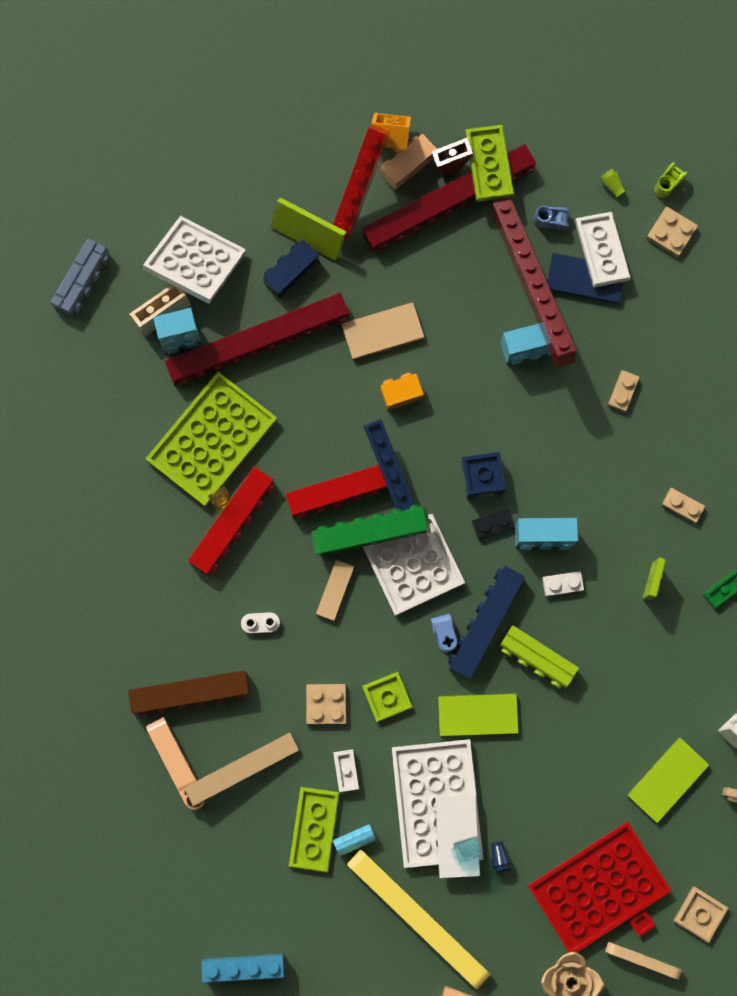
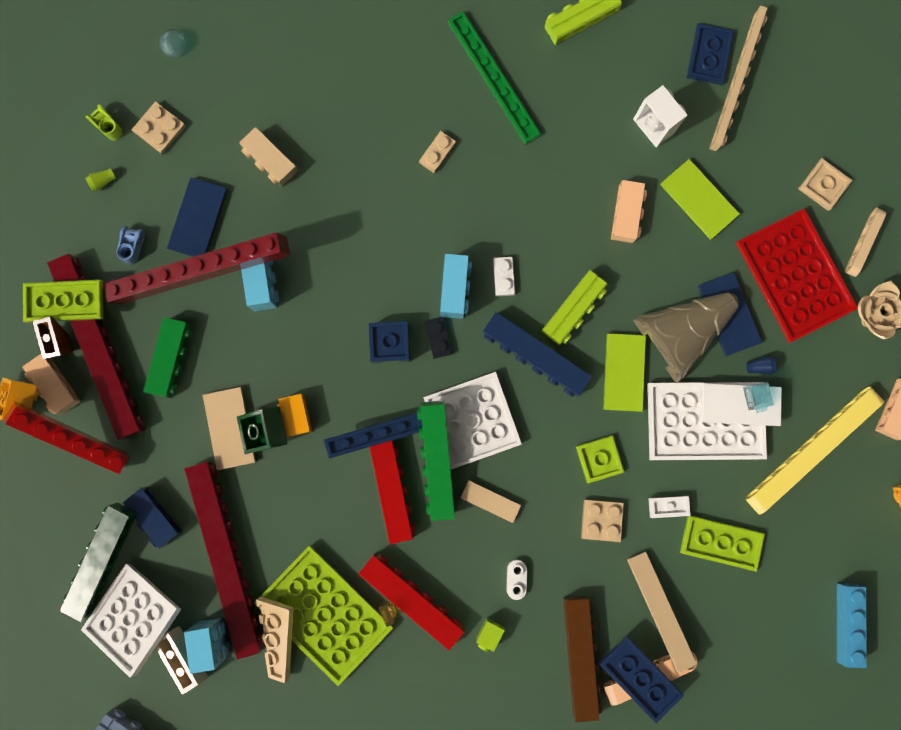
camera: 85 degrees left, 5 degrees up
(174, 751) = (641, 679): none -> dark blue tile
(188, 396) = (277, 636): none -> tan wing
(204, 600) = (489, 635): none -> lime brick
(246, 224) = (98, 561): none -> brick
(305, 226) = (115, 488): lime tile -> none
(354, 840) = (736, 505): medium azure axle -> none
(384, 361) = (262, 430): none -> dark green brick
(444, 629) = (539, 397): medium blue piece -> none
(445, 265) = (167, 358): none -> green brick
(528, 774) = (687, 329): none -> dark tan cone
(550, 820) = (740, 330): none -> dark blue tile
(602, 249) = (169, 198): white tile -> none
(623, 391) = (317, 195): tan plate -> none
(641, 923) = (831, 239): red tile -> none
(645, 705) = (628, 211): none -> light nougat brick
(654, 339) = (268, 157): none -> tan brick
(654, 579) = (509, 187): lime tile -> none

